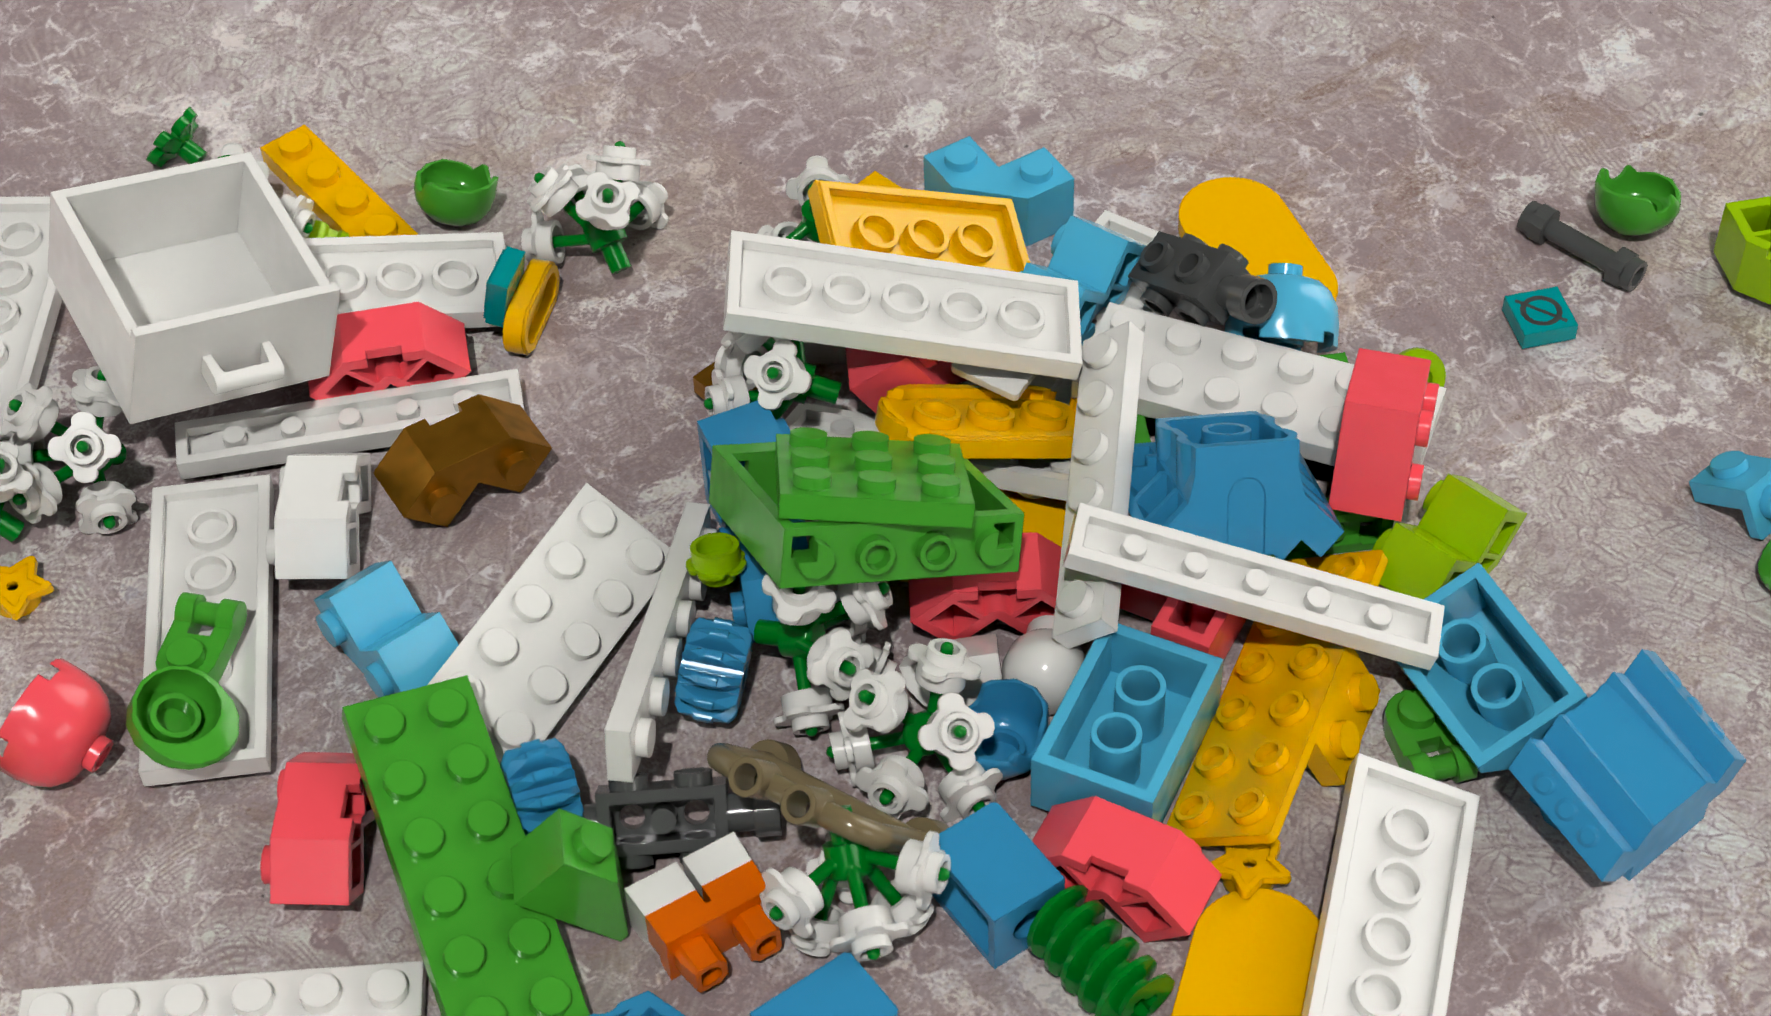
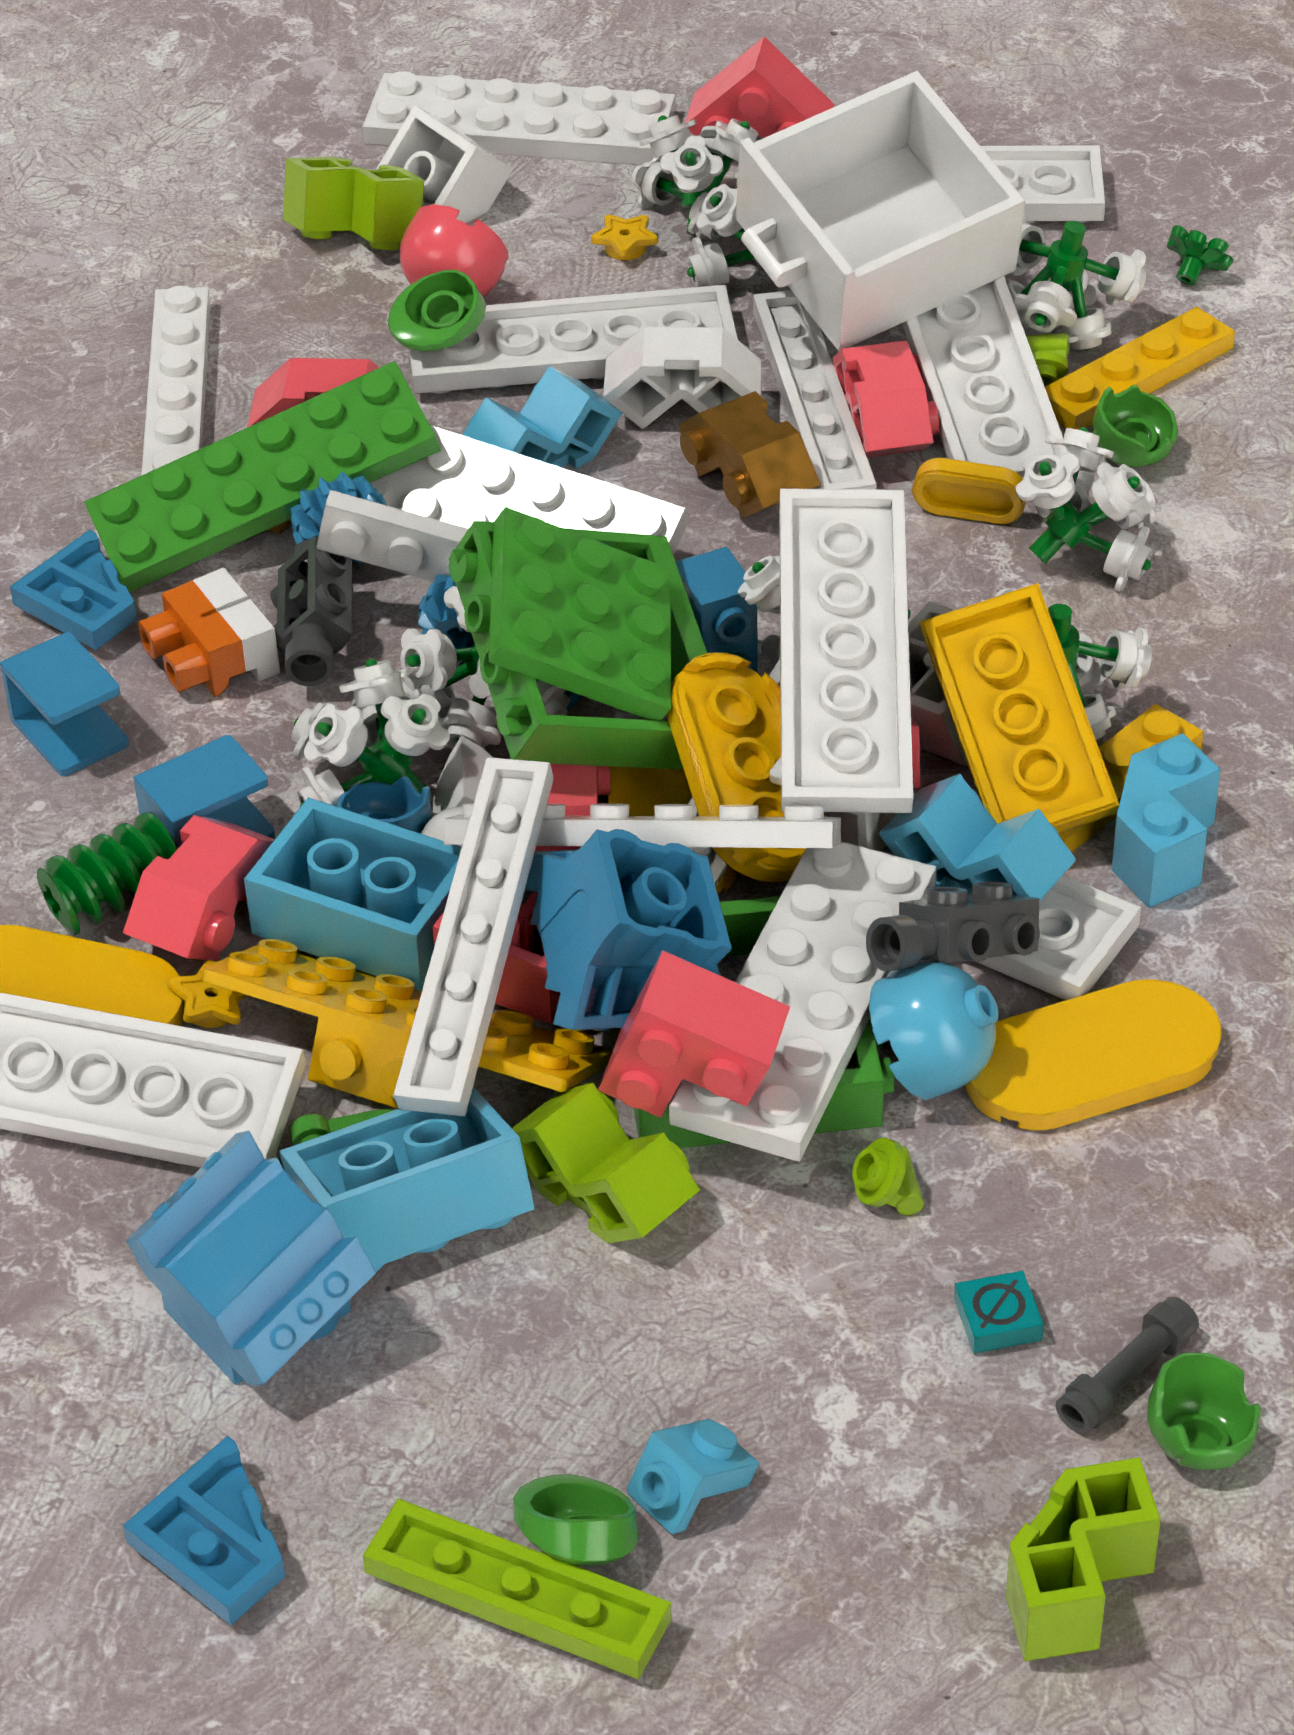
camera: 90 degrees right, 5 degrees down
(202, 652) = (530, 320): bright green plate -> none
(502, 285) = (966, 442): teal tile -> none
(571, 874) = (236, 533): bright green slope -> none
(774, 773) = (237, 616): dark tan bar -> none
(843, 866) = (188, 704): white plant -> none

